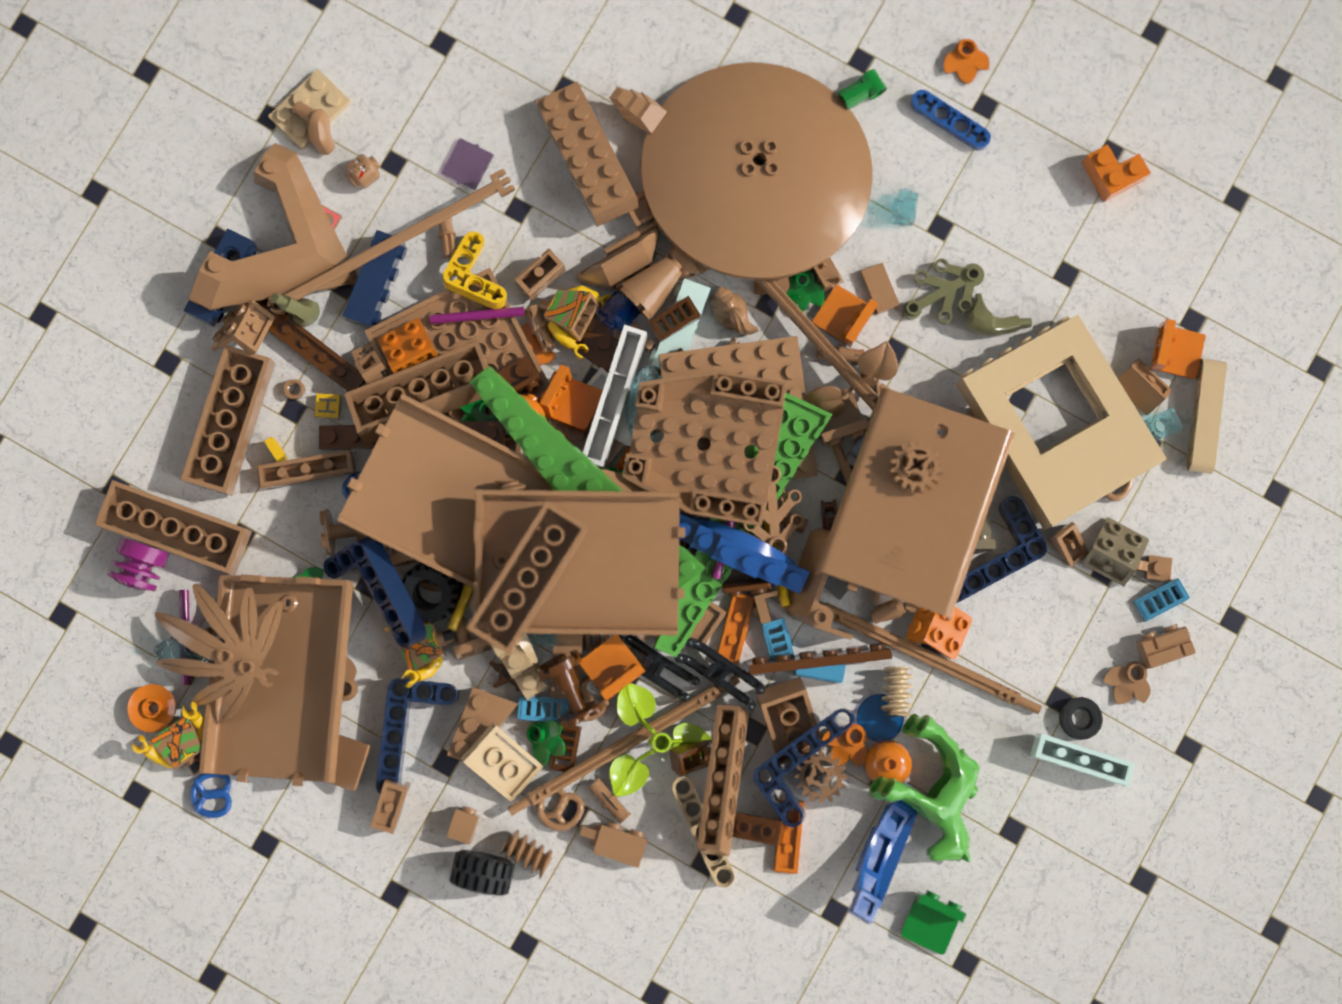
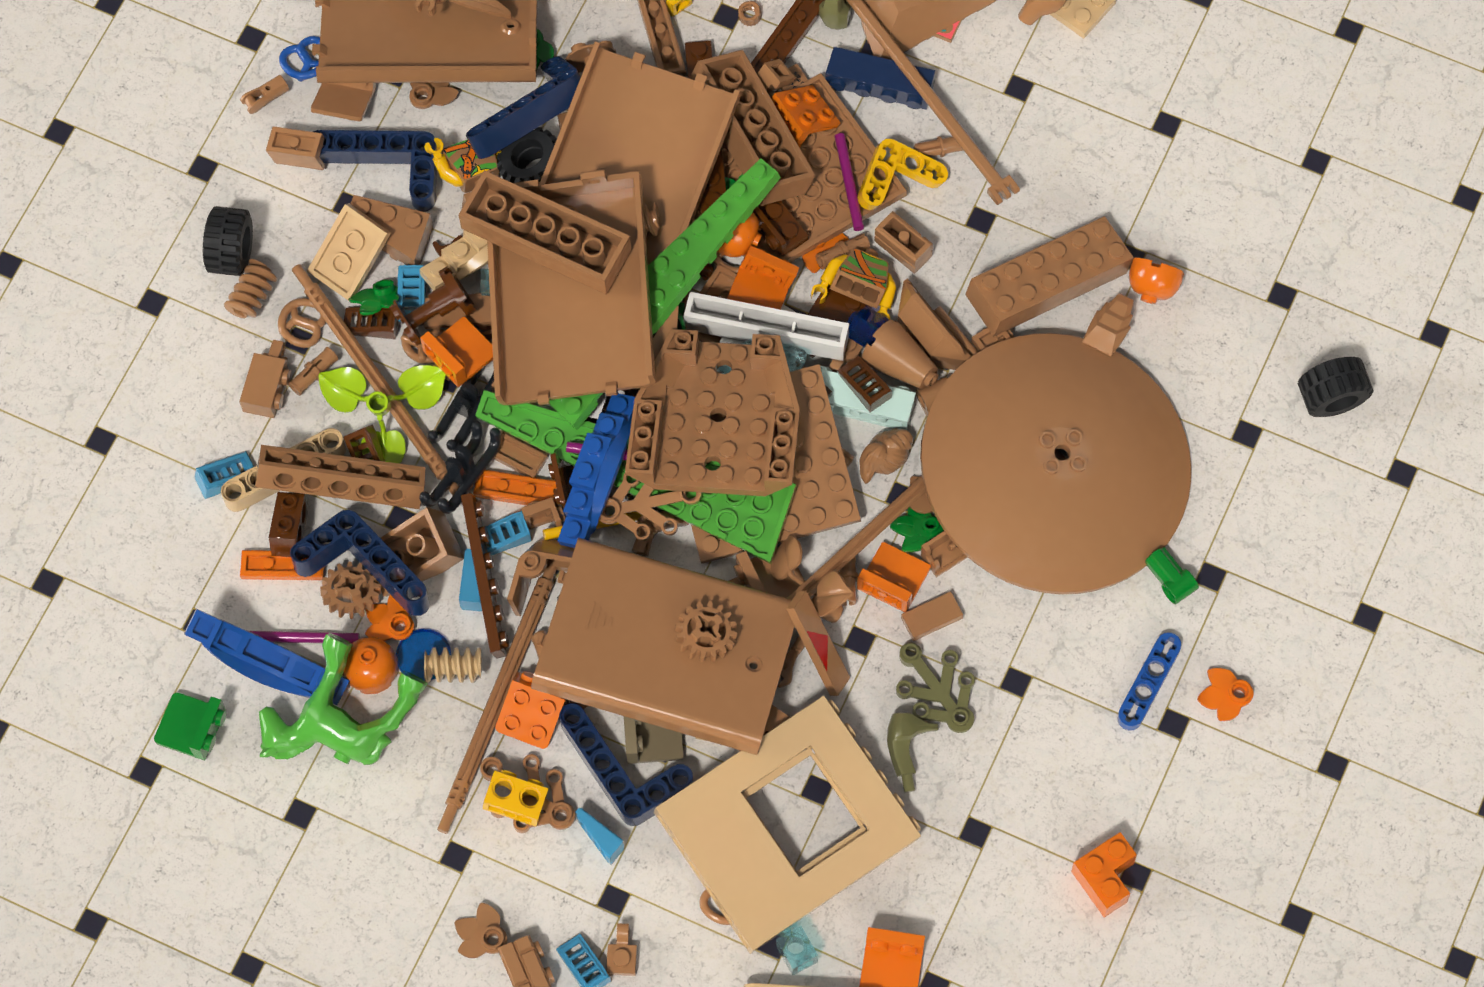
camera: 90 degrees right, 15 degrees down
(292, 795) = (305, 57): none -> blue piece
(325, 829) = (268, 92): none -> medium nougat bar
(327, 406) = (733, 43): yellow tile -> none
(362, 171) = (1002, 54): medium nougat head -> none
(464, 825) = (279, 225): medium nougat brick -> none
(467, 164) = (1027, 162): clear purple piece -> none
(596, 68) = (1154, 280): none -> orange cylinder
(714, 900) = (210, 470): none -> dark azure slope
(856, 820) = (303, 637): none -> magenta bar
(904, 207) = (1032, 633): clear light blue brick -> none
(912, 379) = (818, 643): none -> medium nougat tile
(1014, 633) = (550, 809): none -> medium nougat plant
(1028, 648) = (512, 805): none -> yellow brick
(1059, 573) = (605, 840): none -> dark azure slope
(1069, 544) = (642, 849): medium nougat slope -> none
(1082, 759) = (384, 876): light aqua brick -> none
(1094, 712) = (441, 895): black tyre -> none
(1116, 552) = (639, 905): dark tan bracket -> none
(1144, 387) = (844, 927): medium nougat panel -> none

